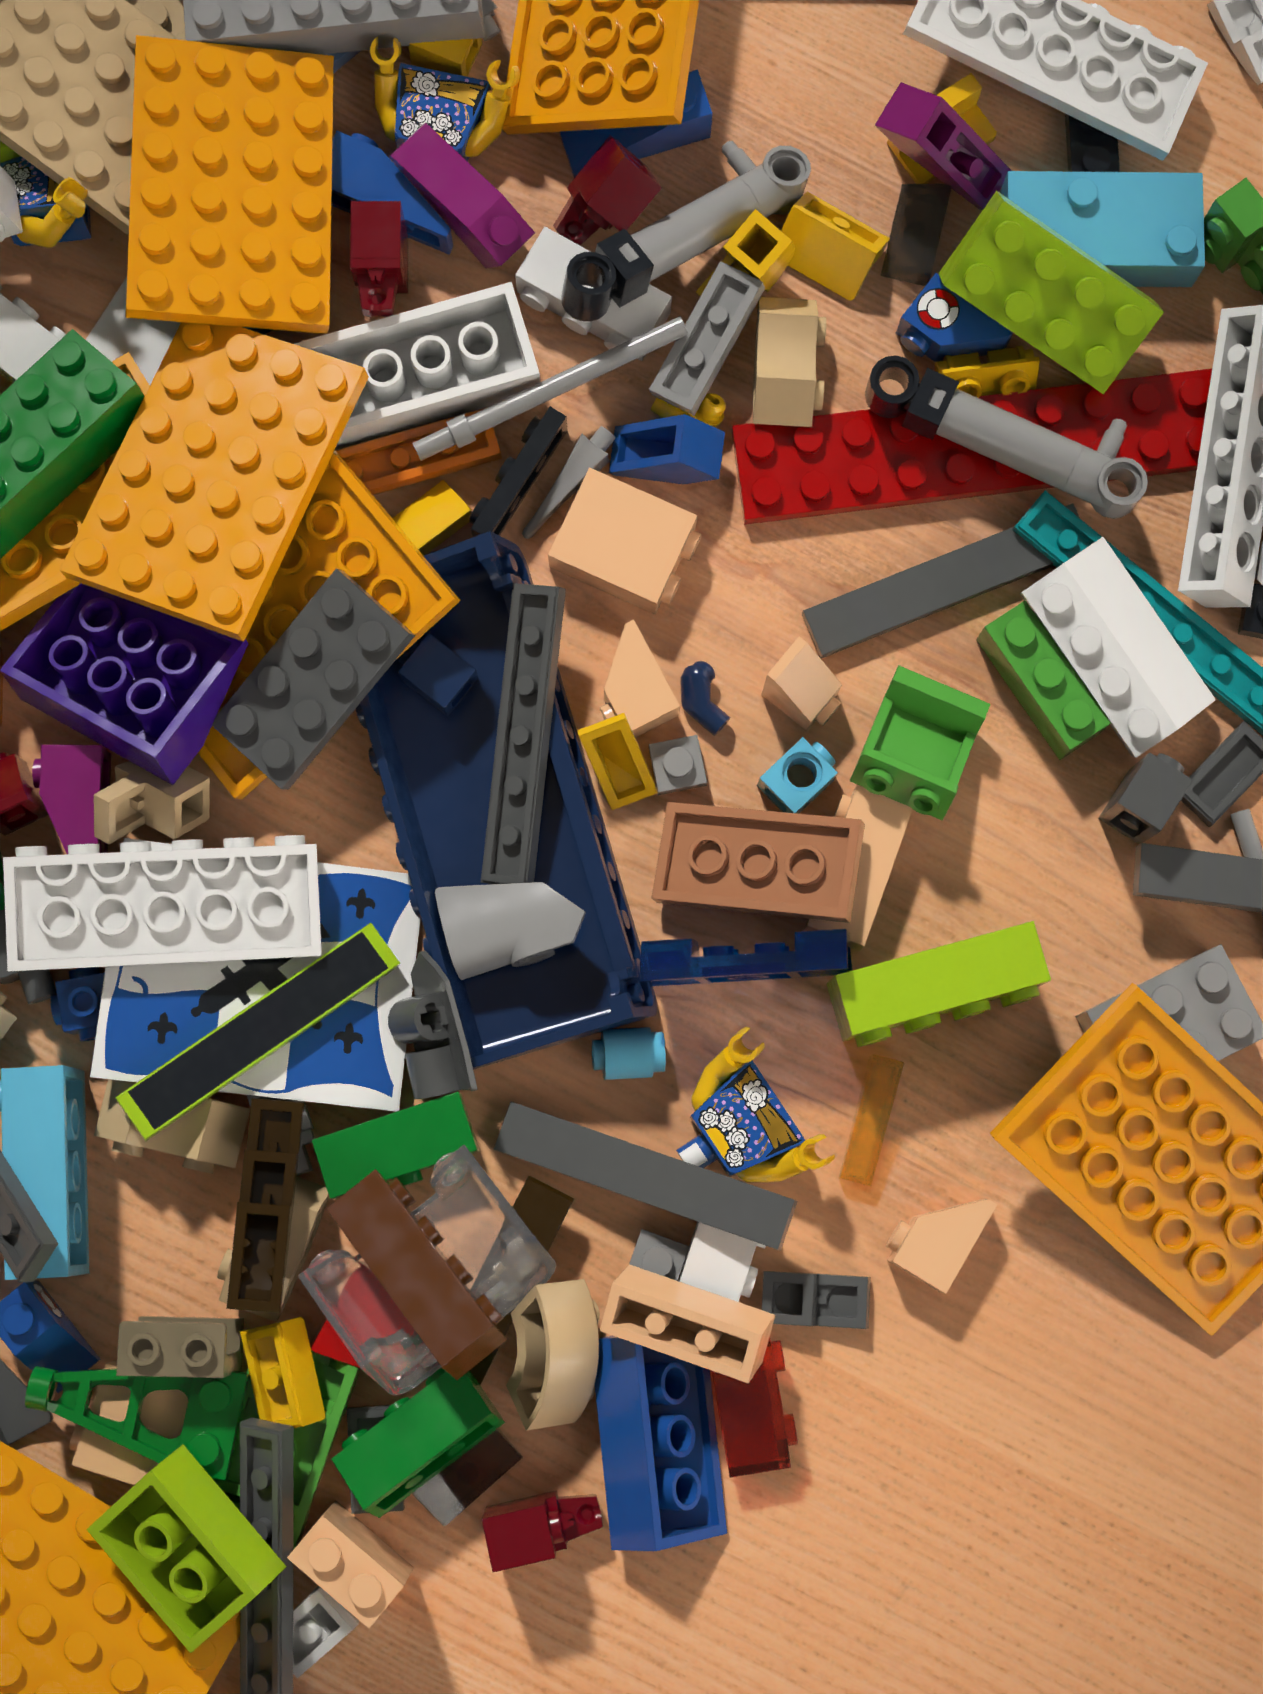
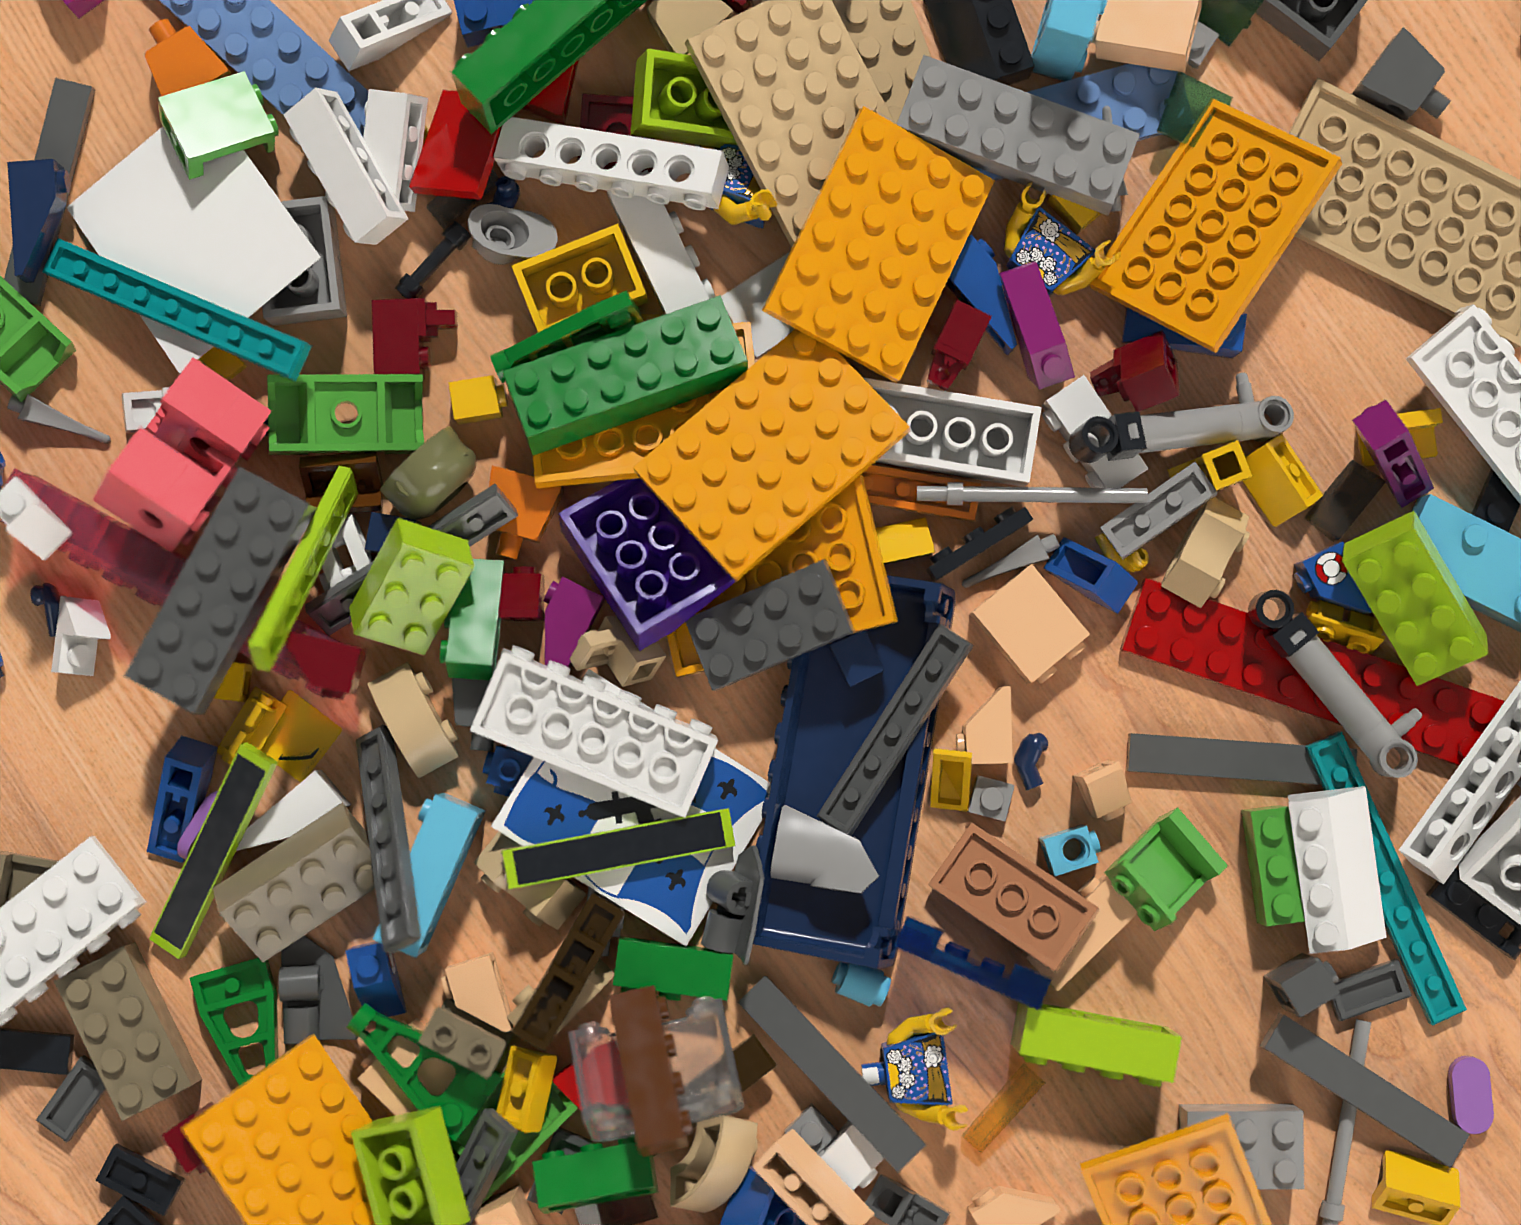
camera: 20 degrees right, 5 degrees up
(172, 1285) = (479, 990): none -> light nougat slope

